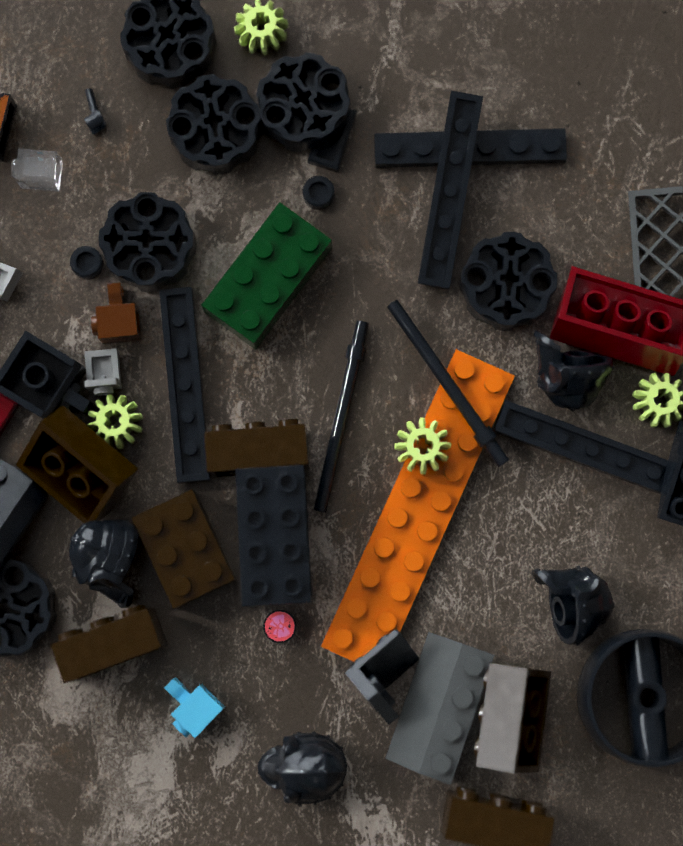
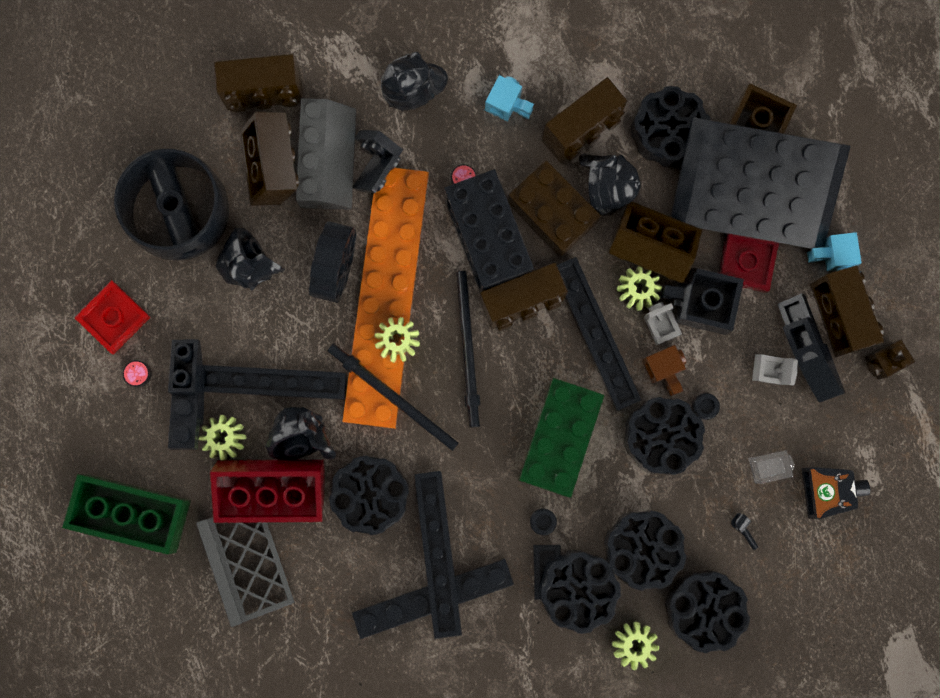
camera: 160 degrees right, 0 degrees up
(472, 561) = (332, 262): none -> black connector

